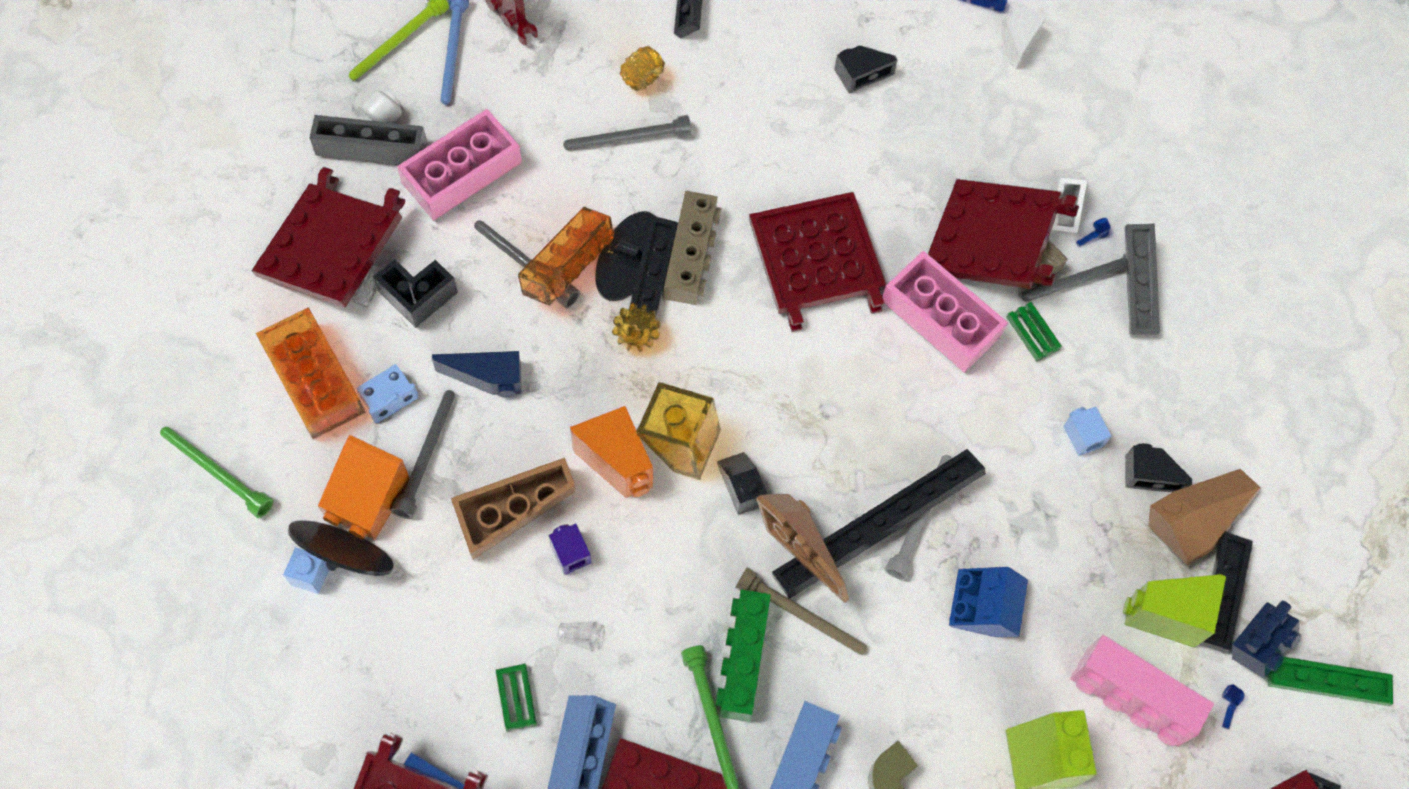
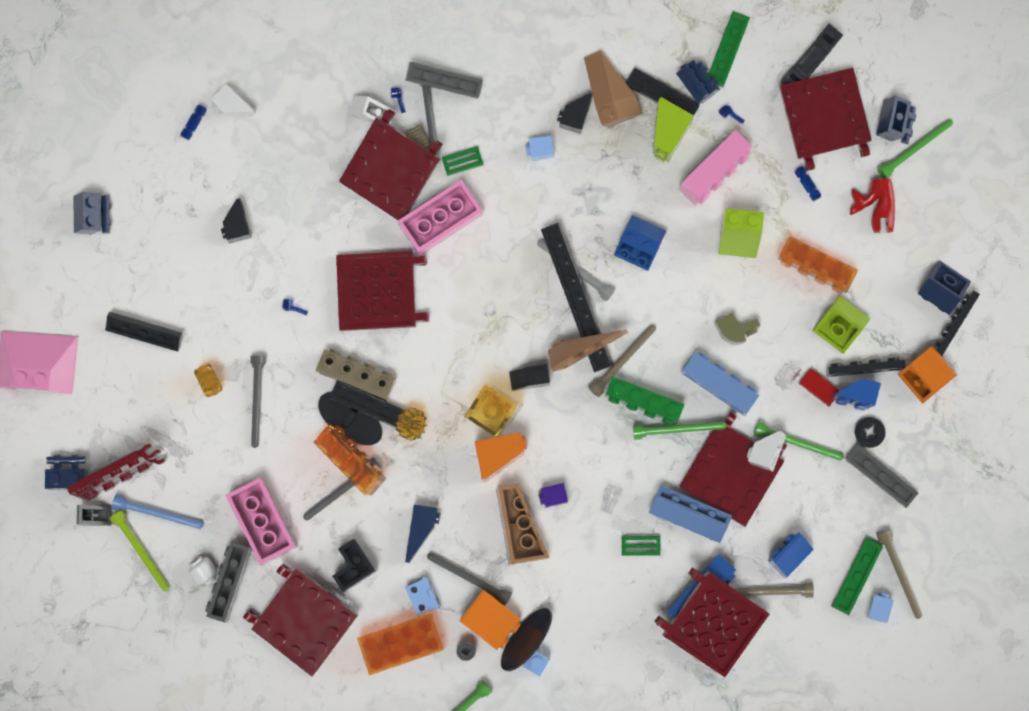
camera: 70 degrees left, 15 degrees up
(316, 473) = (466, 651): none -> dark grey wheel
(769, 148) = (288, 306): none -> clear blue hand

